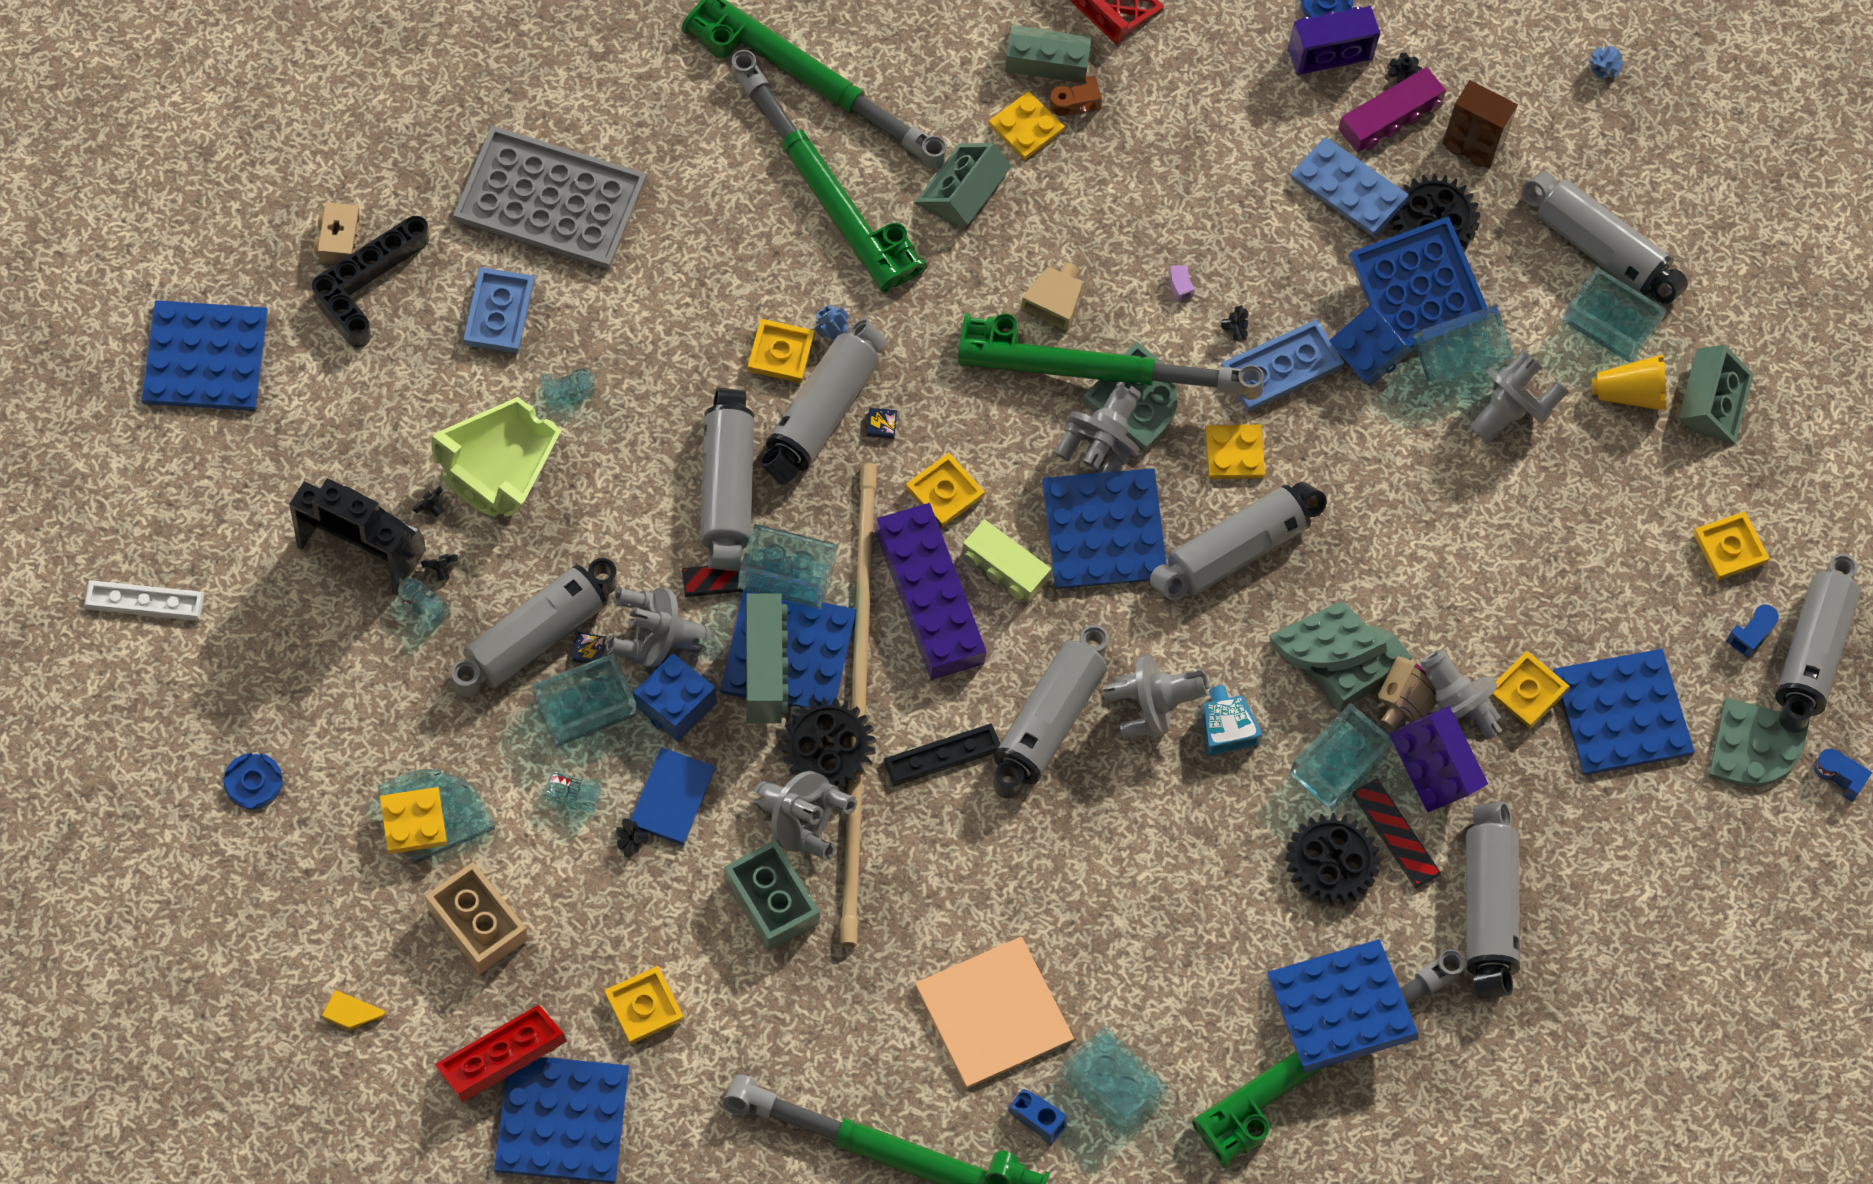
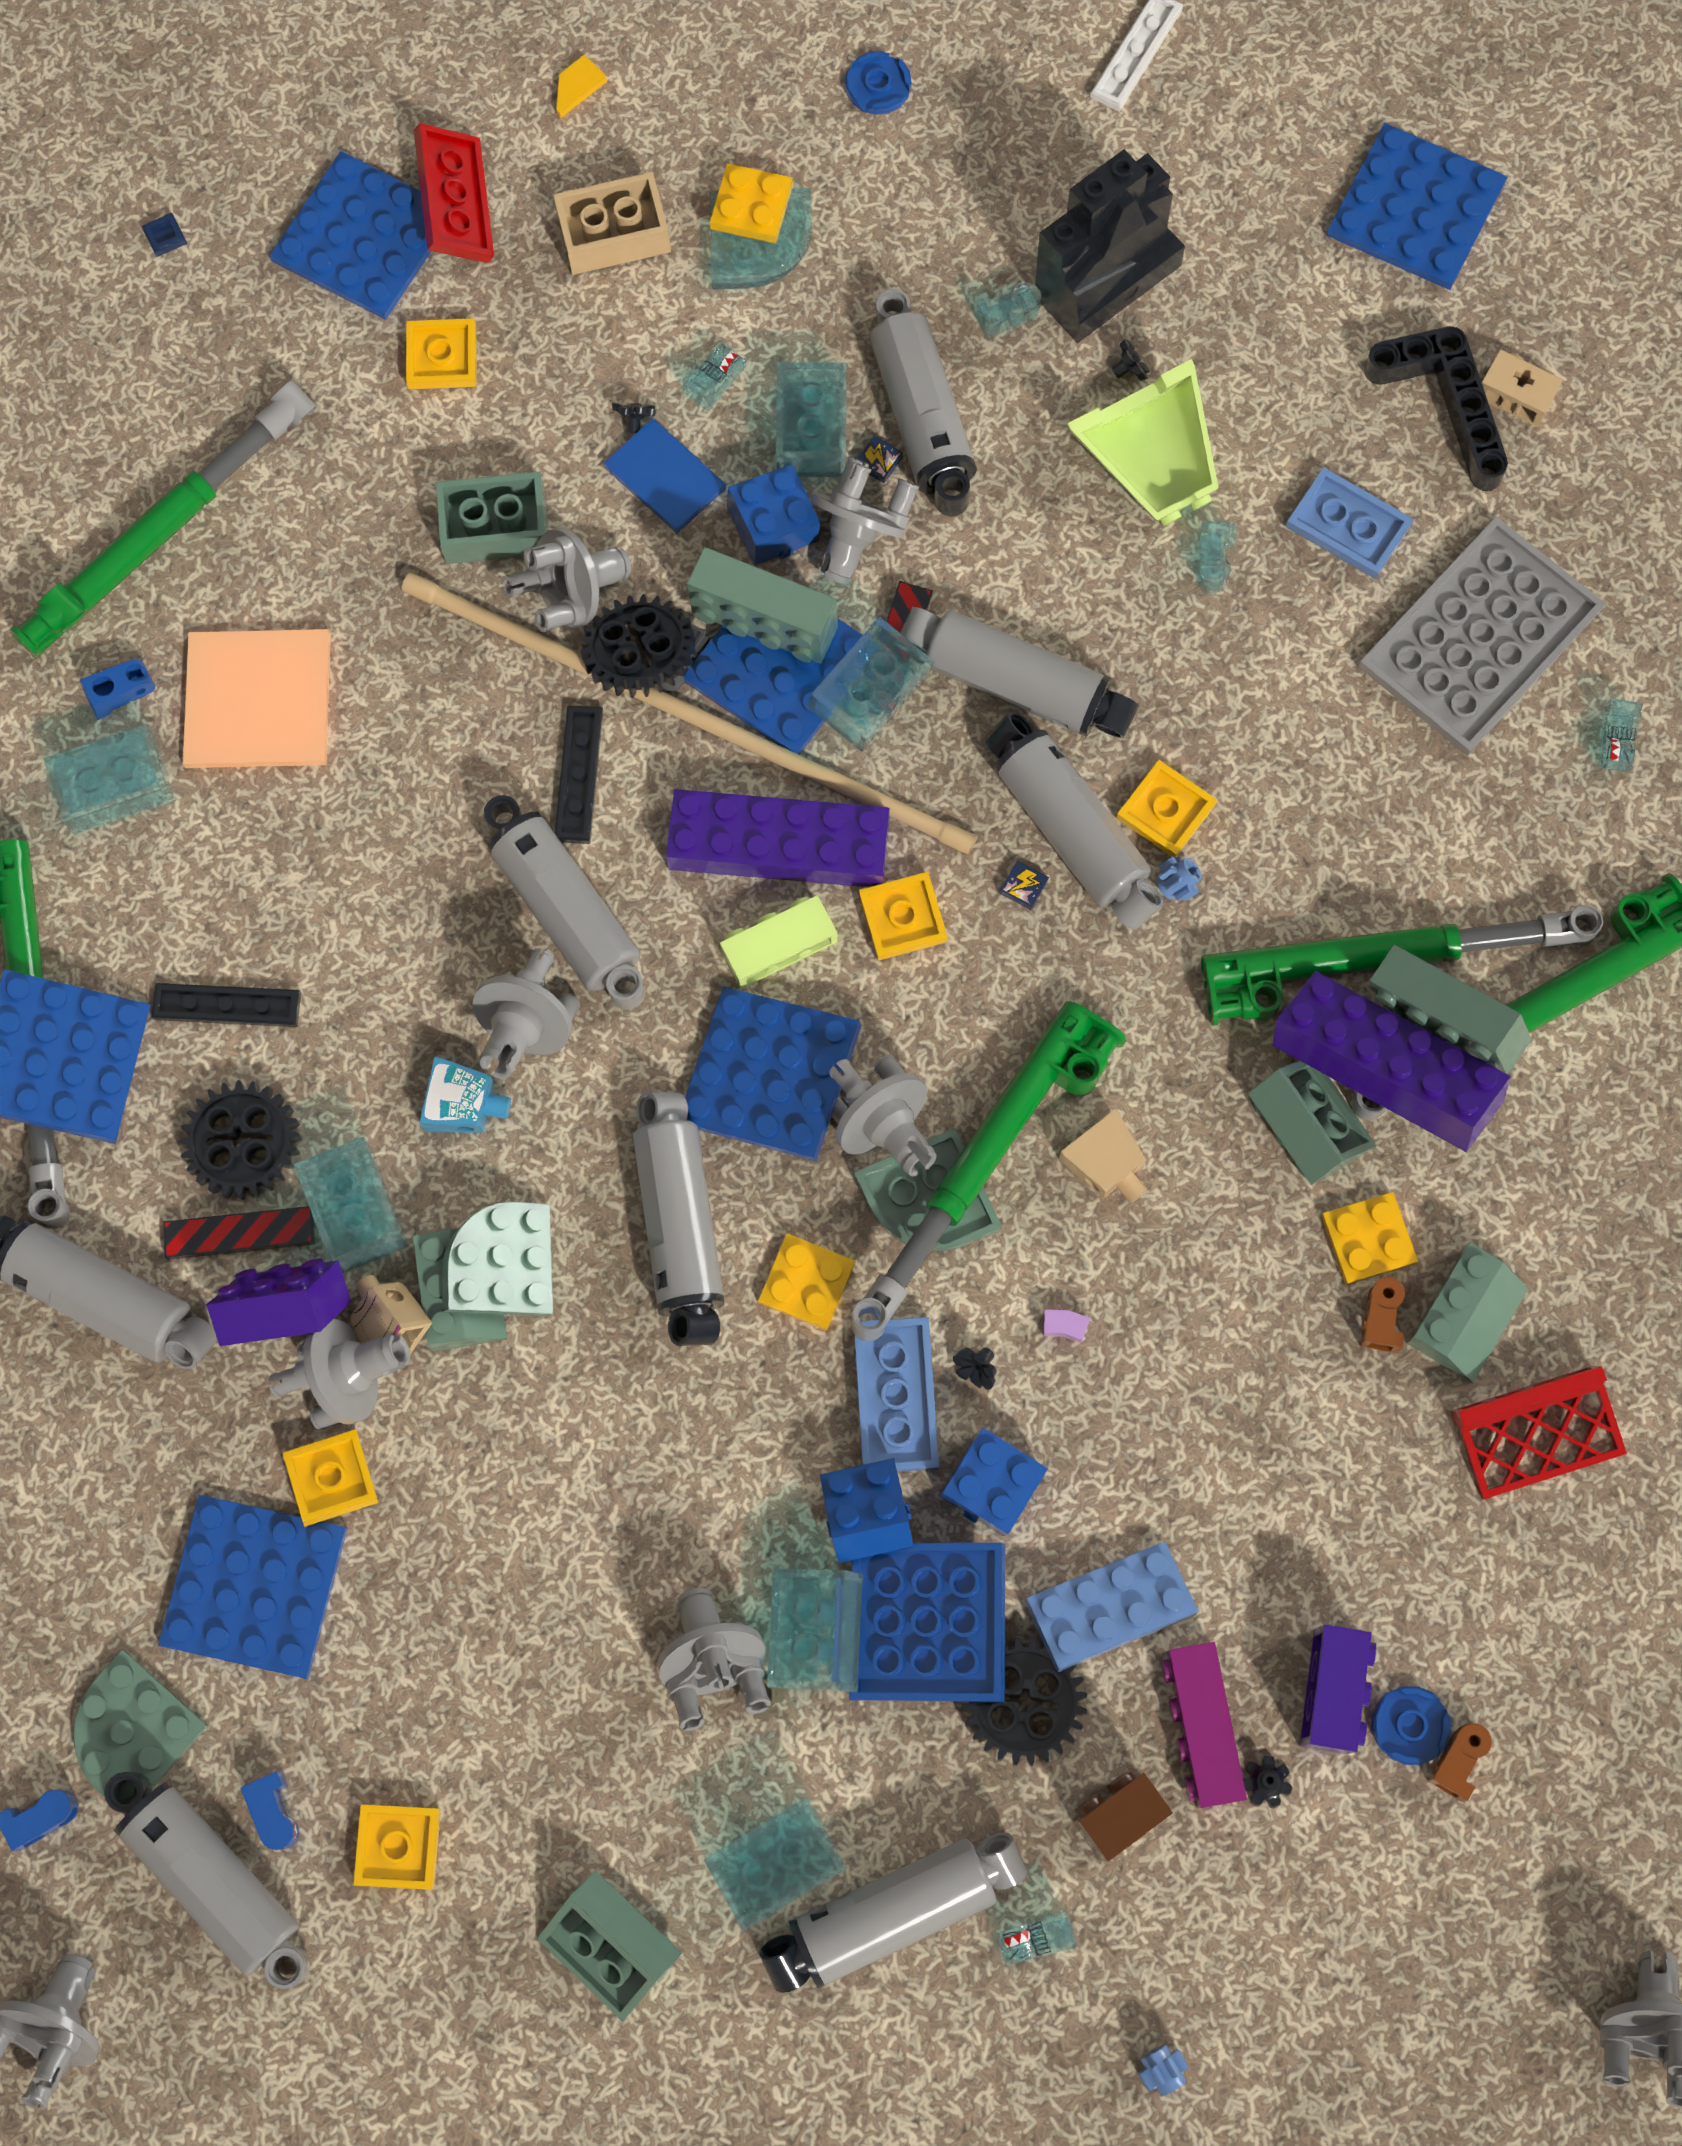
camera: 125 degrees right, 10 degrees up
(440, 565) = (1049, 344): black plant -> none
(590, 88) = (1619, 734): none -> clear light blue leg
(856, 112) = (1450, 1009): none -> sand green brick
(908, 138) = (1391, 1061): none -> dark purple brick
(1239, 921) = (226, 1005): none -> black tile
(1309, 282) = (993, 1482): none -> blue brick
(1570, 156) = (1037, 1938): none -> clear light blue leg
(1634, 384) = (667, 1837): yellow cone -> none

